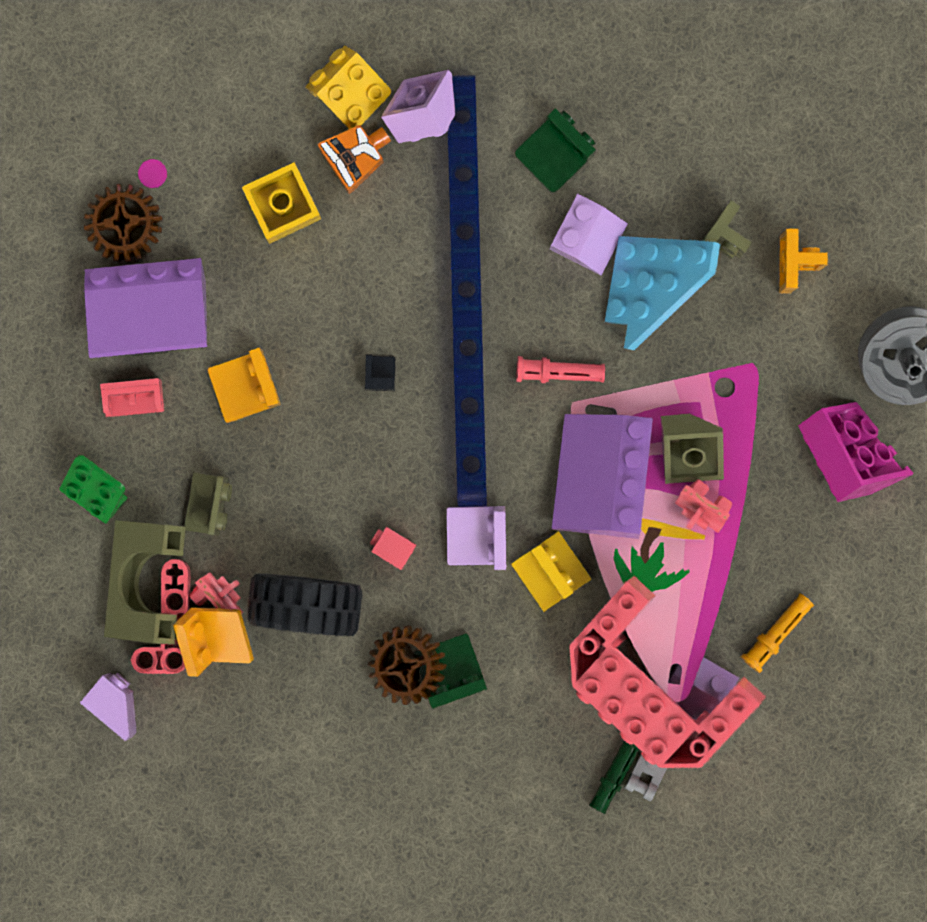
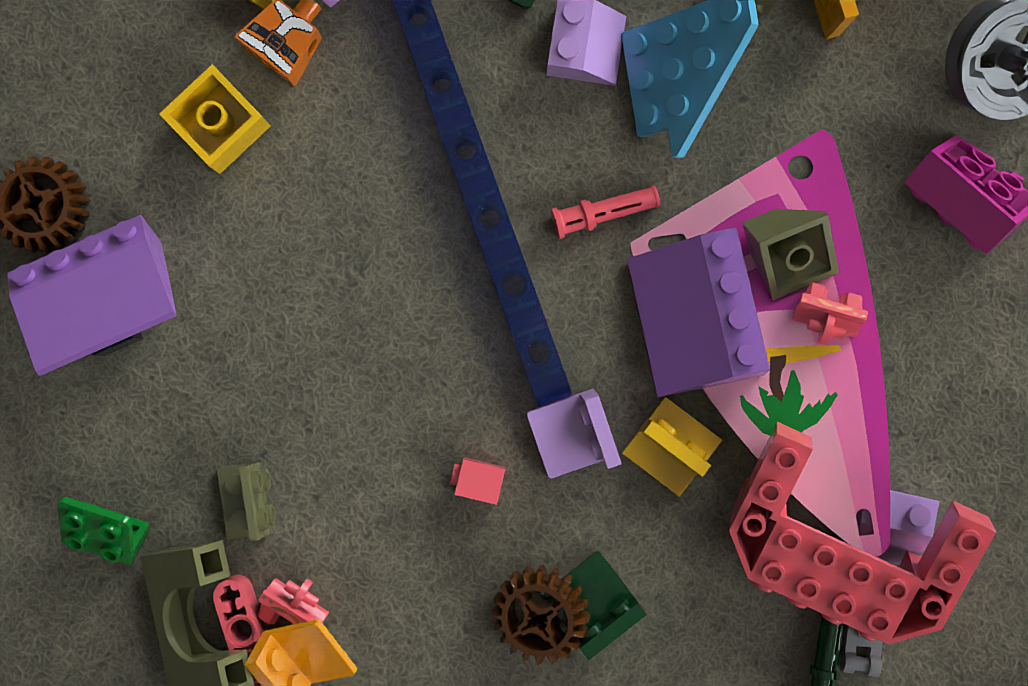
camera: 20 degrees left, 0 degrees up
(132, 397) = (115, 404): coral hinge -> none
(152, 173) = (58, 137): dark pink piece -> none
(244, 386) = (243, 348): light orange bracket -> none
(304, 604) = (394, 590): black tyre -> none
(380, 373) = (396, 281): black panel -> none
(768, 643) = (954, 444): light orange pin -> none

